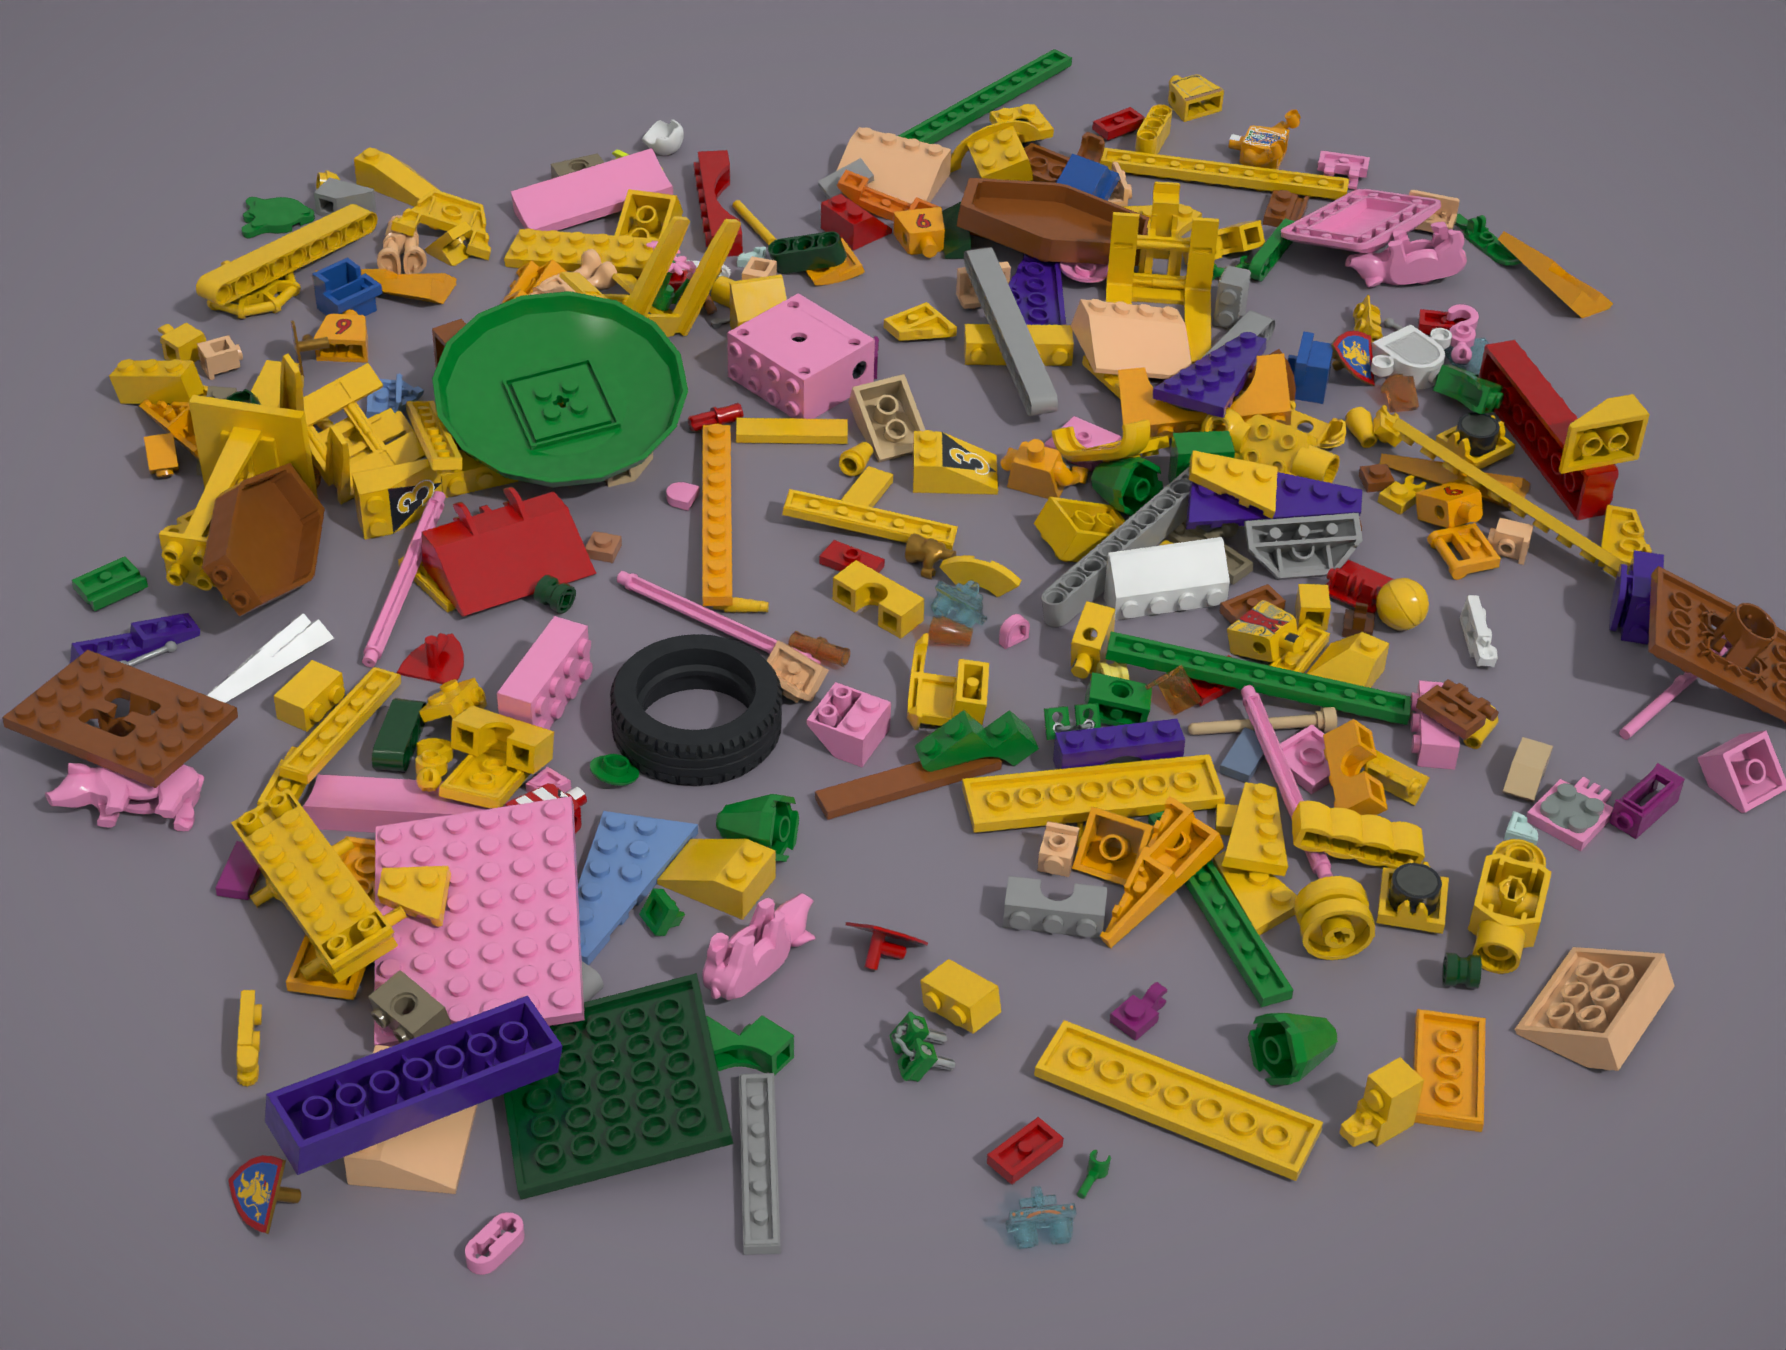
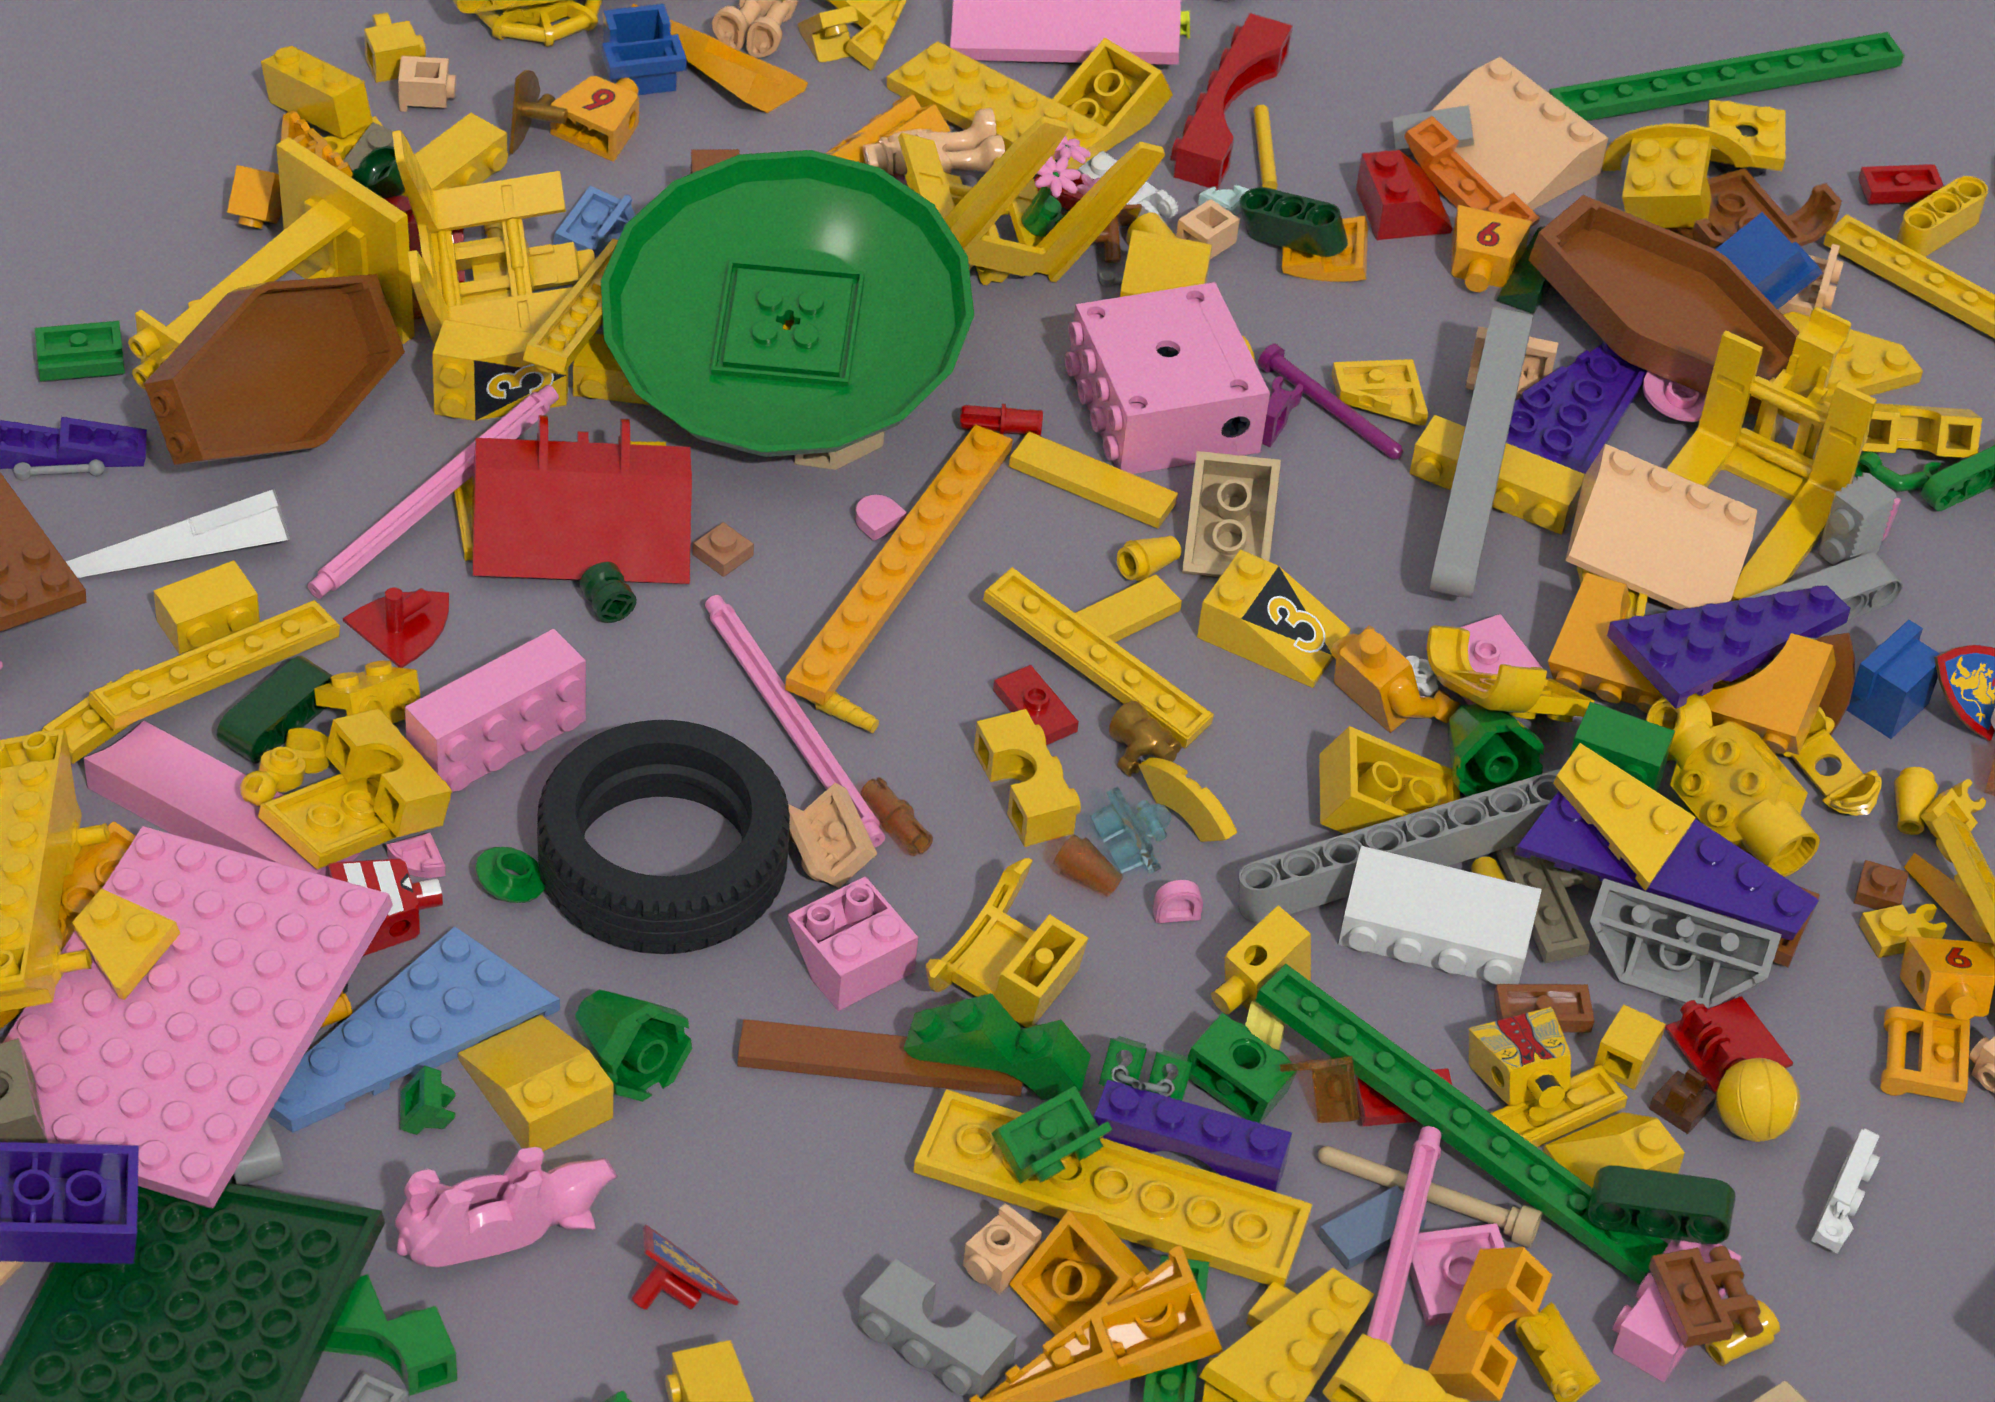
camera: 25 degrees right, 5 degrees up
(912, 346) = (1273, 359): none -> magenta bar
(1046, 775) = (1050, 1134): none -> green bracket
(1399, 673) = (1662, 1204): none -> dark green beam

